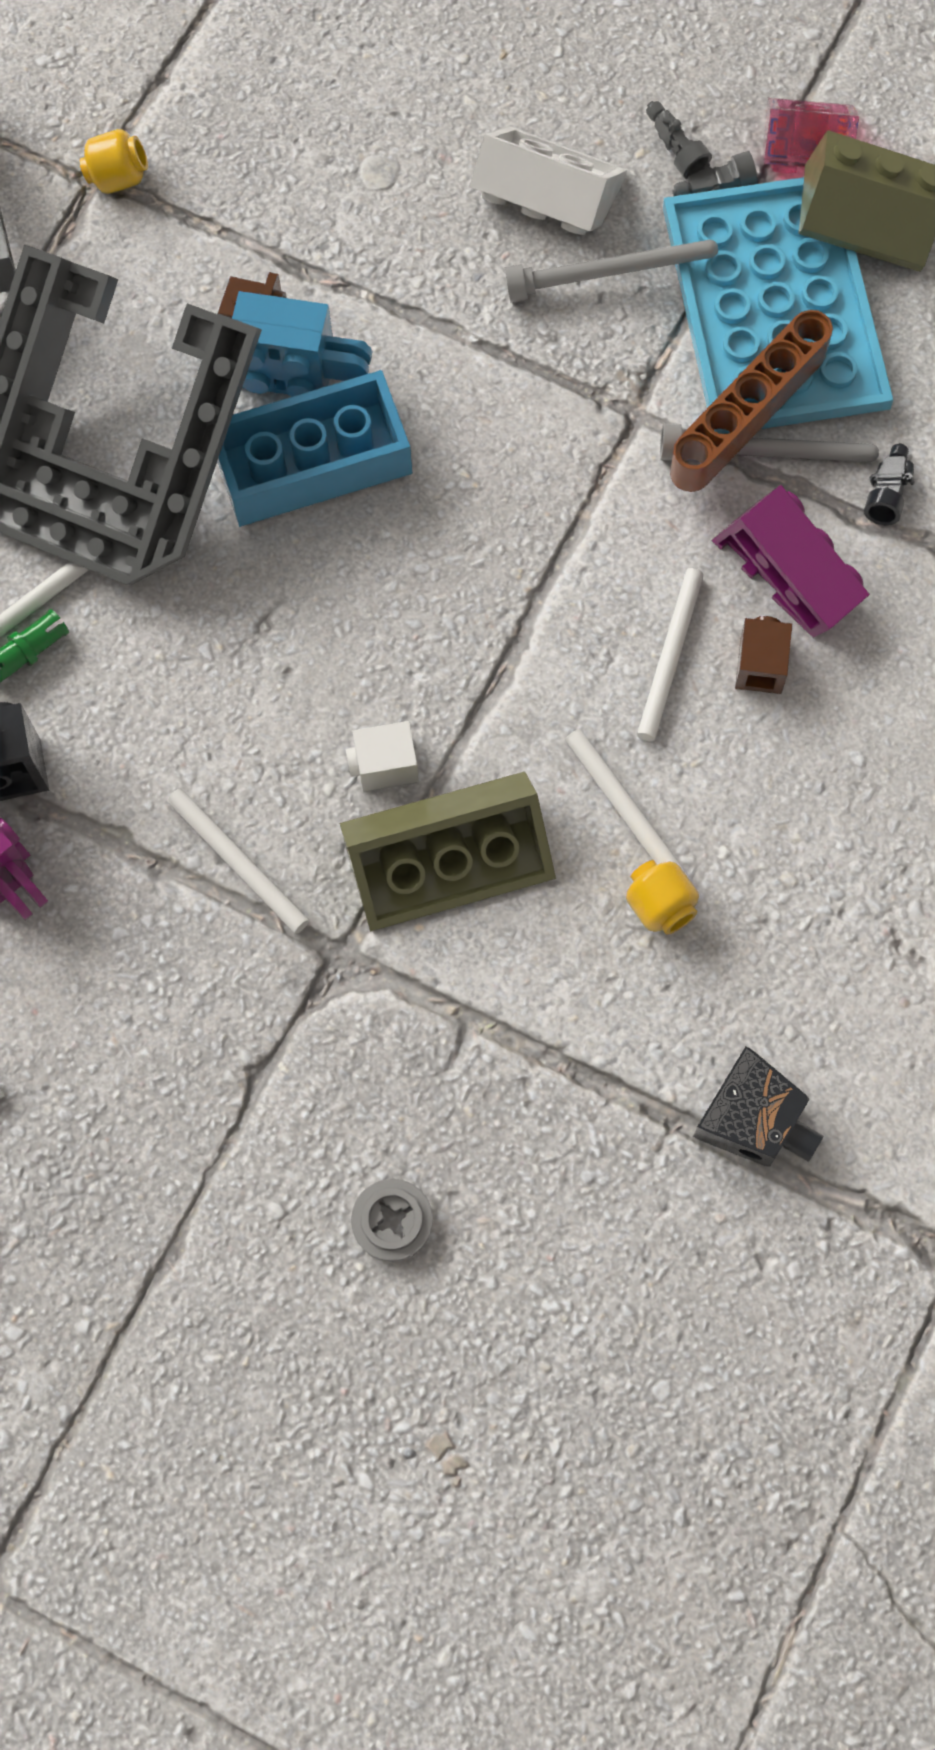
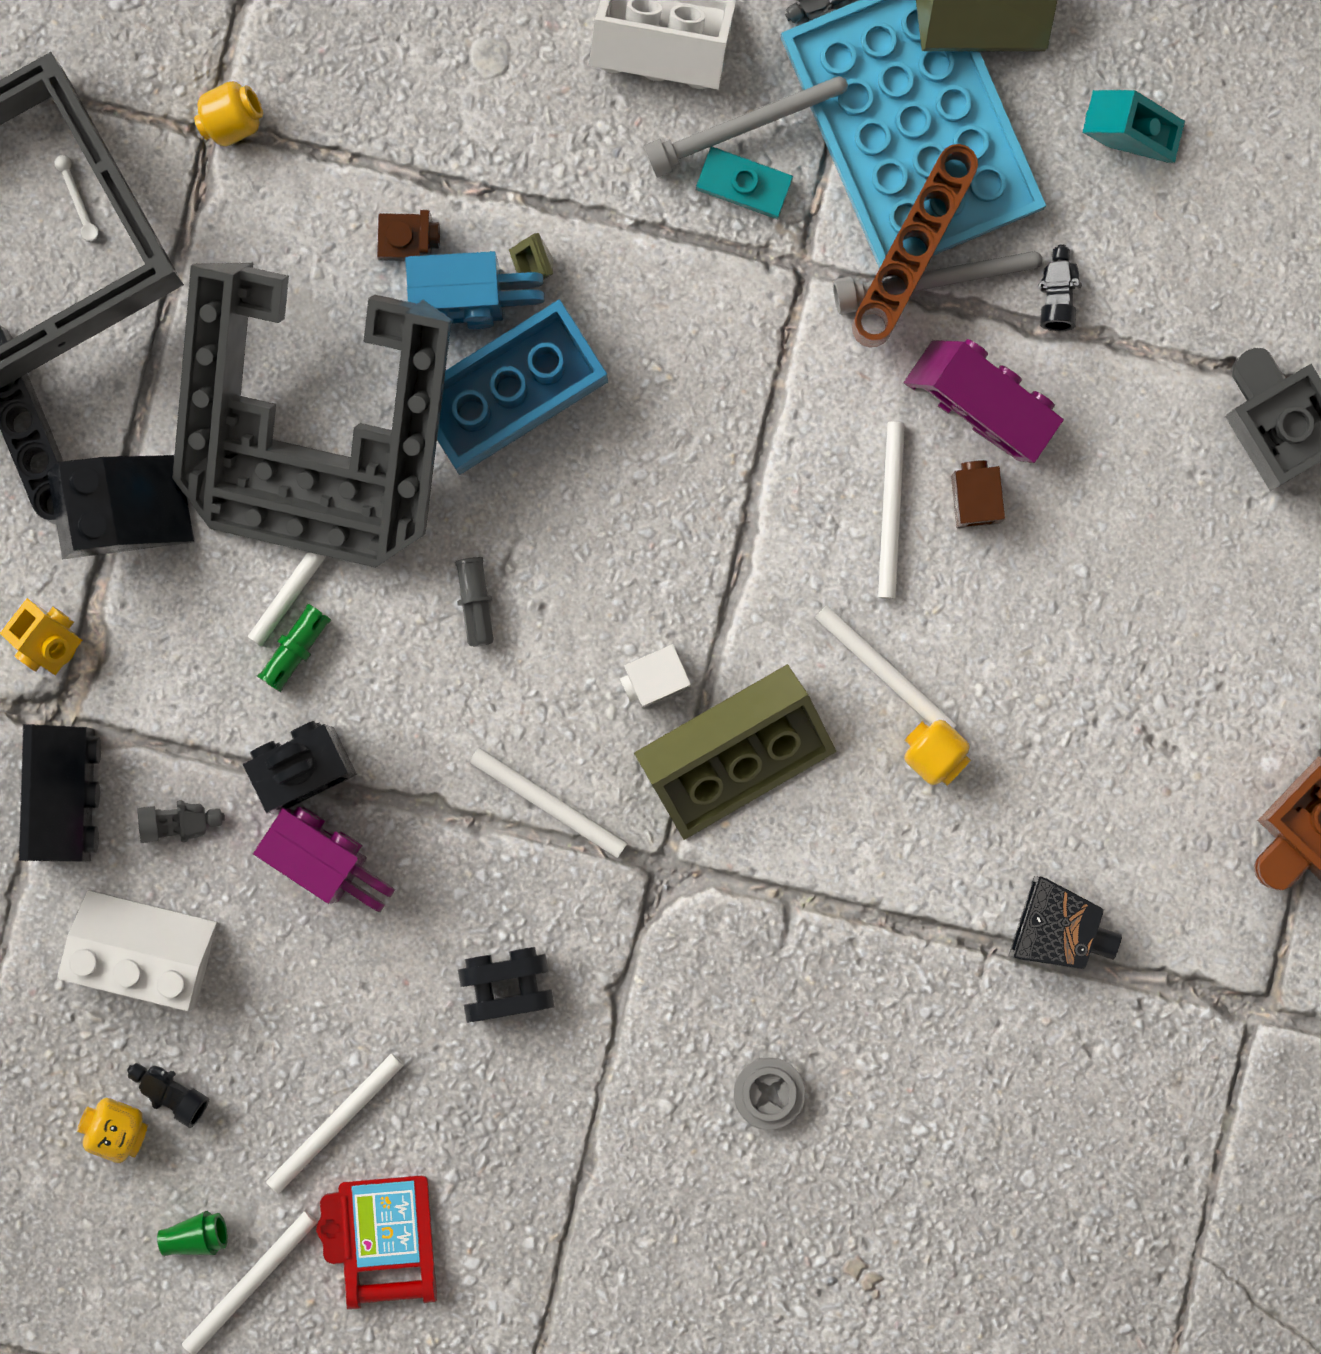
camera: 15 degrees left, 15 degrees up
(119, 1013) = (522, 965): none -> black brick
(219, 645) = (475, 601): none -> dark grey axle
(373, 335) = (532, 256): none -> olive slope
(595, 325) = (744, 182): none -> teal plate

